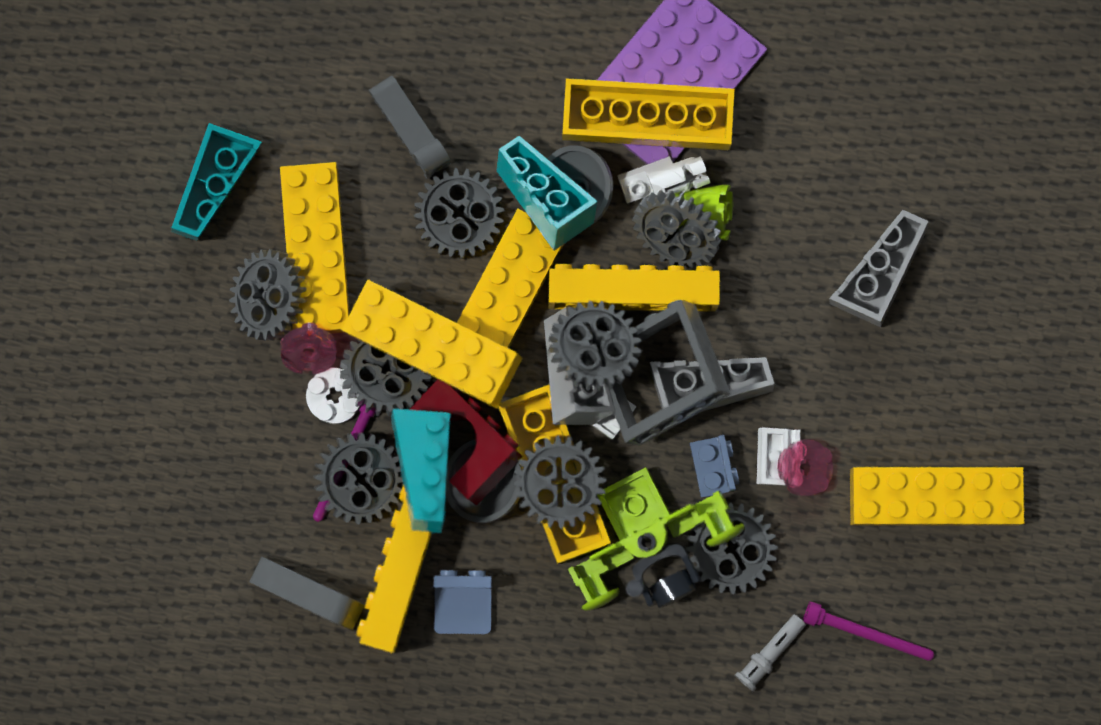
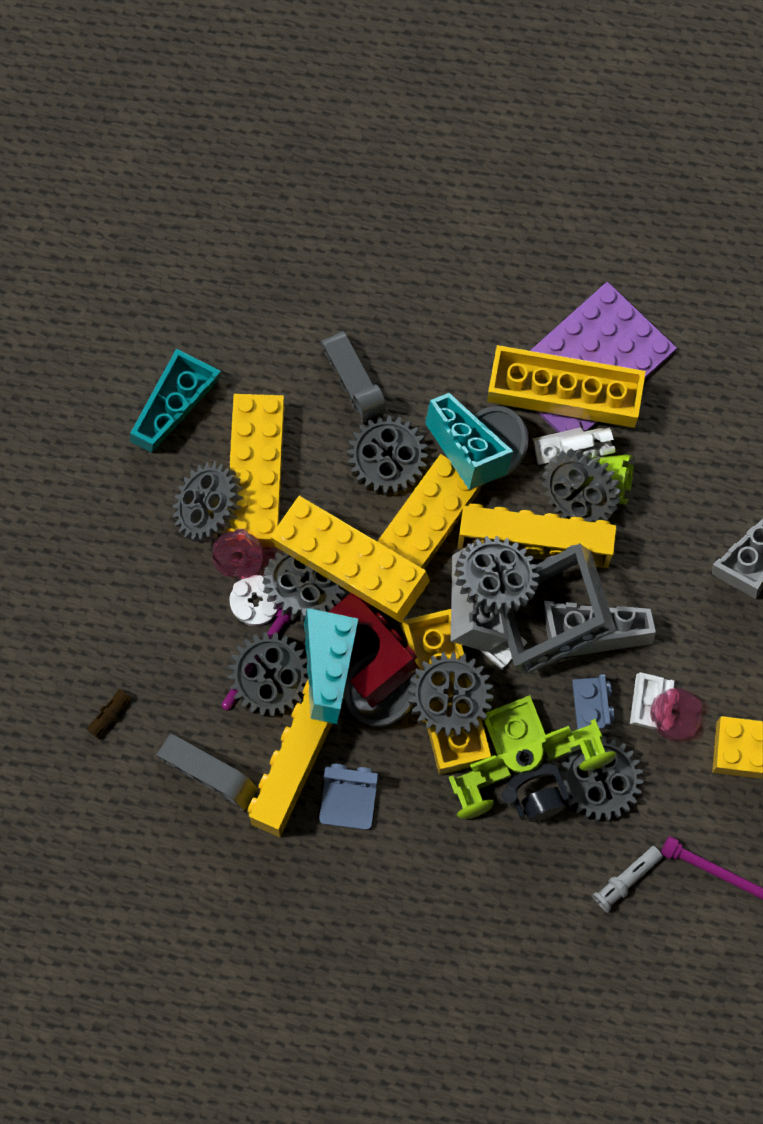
camera: 10 degrees right, 10 degrees down
(192, 541) = (108, 713): none -> dark brown pin

